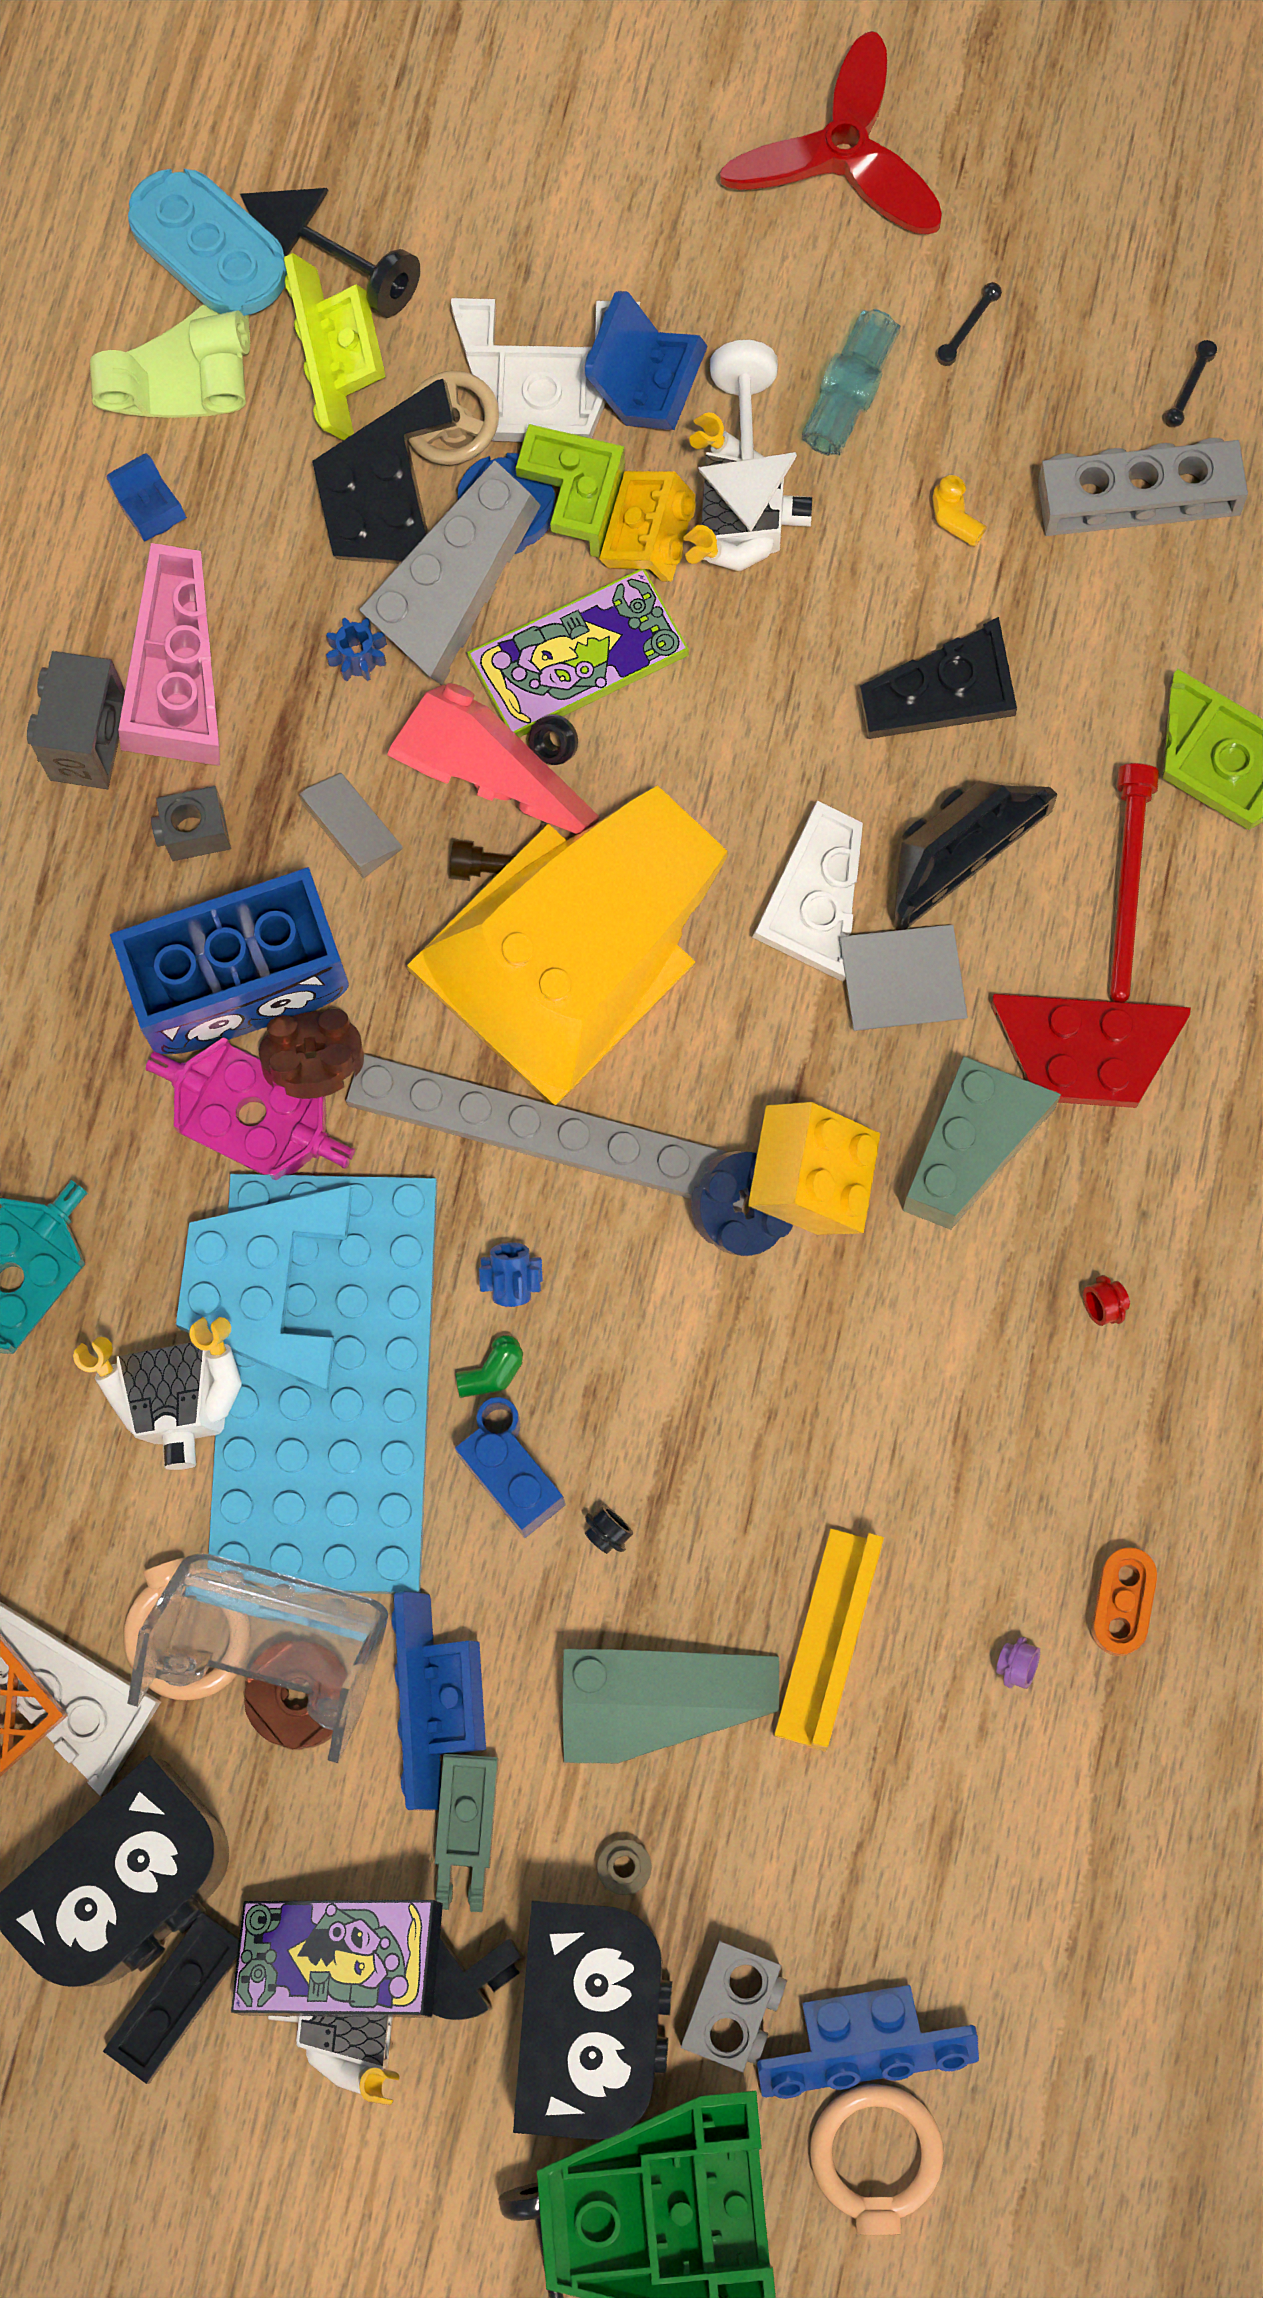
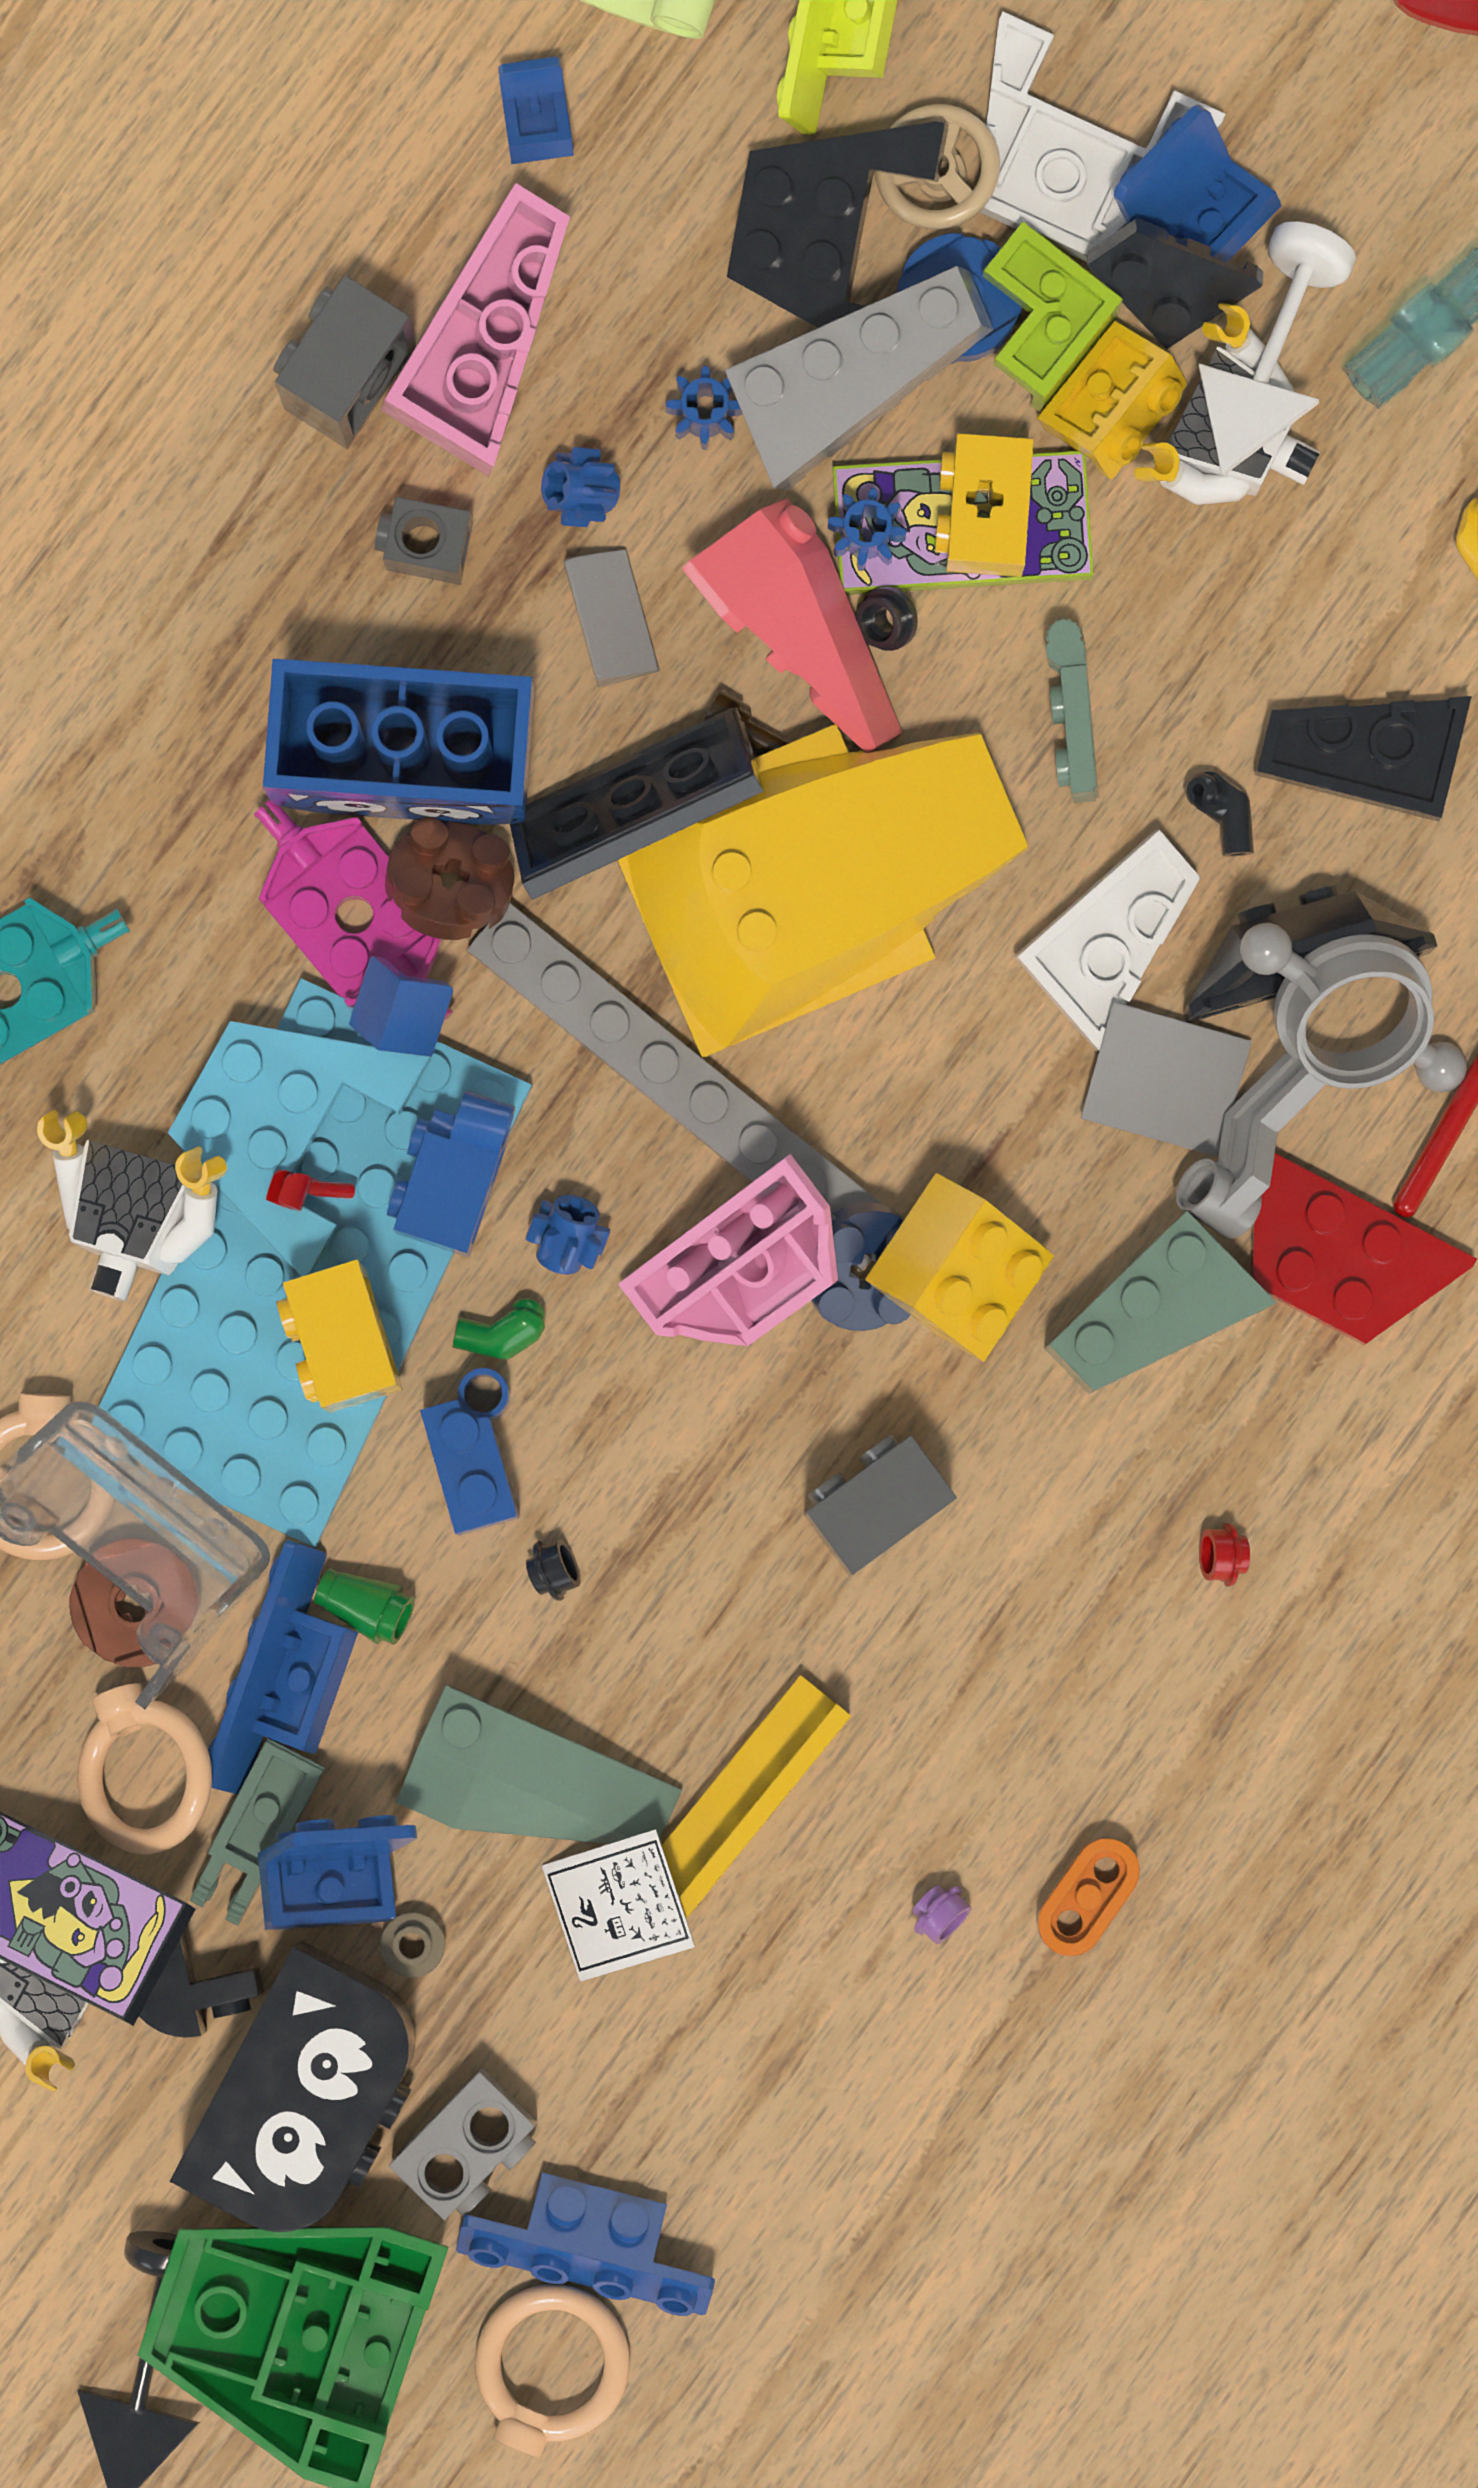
camera: 15 degrees right, 10 degrees up
(286, 1325) = (291, 1189): none -> red hand
(289, 739) = (580, 487): none -> blue gear
(313, 1157) = (400, 1010): none -> blue panel
(324, 1783) = (122, 1716): none -> light nougat piece
(371, 1412) = (340, 1336): none -> yellow brick
(404, 1263) = (452, 1173): none -> blue hinge
(425, 937) = (635, 802): none -> black tile
(476, 1618) = (366, 1604): none -> green cone
(510, 665) = (883, 523): none -> blue gear
(537, 1833) = (331, 1874): none -> blue bracket
(589, 600) = (1004, 471): none -> yellow brick
(651, 419) = (1168, 279): none -> black wing
(651, 1233) = (741, 1263): none -> bright pink wedge
(716, 744) = (1073, 708): none -> sand green hinge
(770, 1764) = (618, 1905): none -> white sticker
(833, 1371) = (878, 1504): none -> dark grey brick
(860, 769) = (1228, 807): none -> black arm
(987, 1029) = (1230, 1191): none -> light grey piece

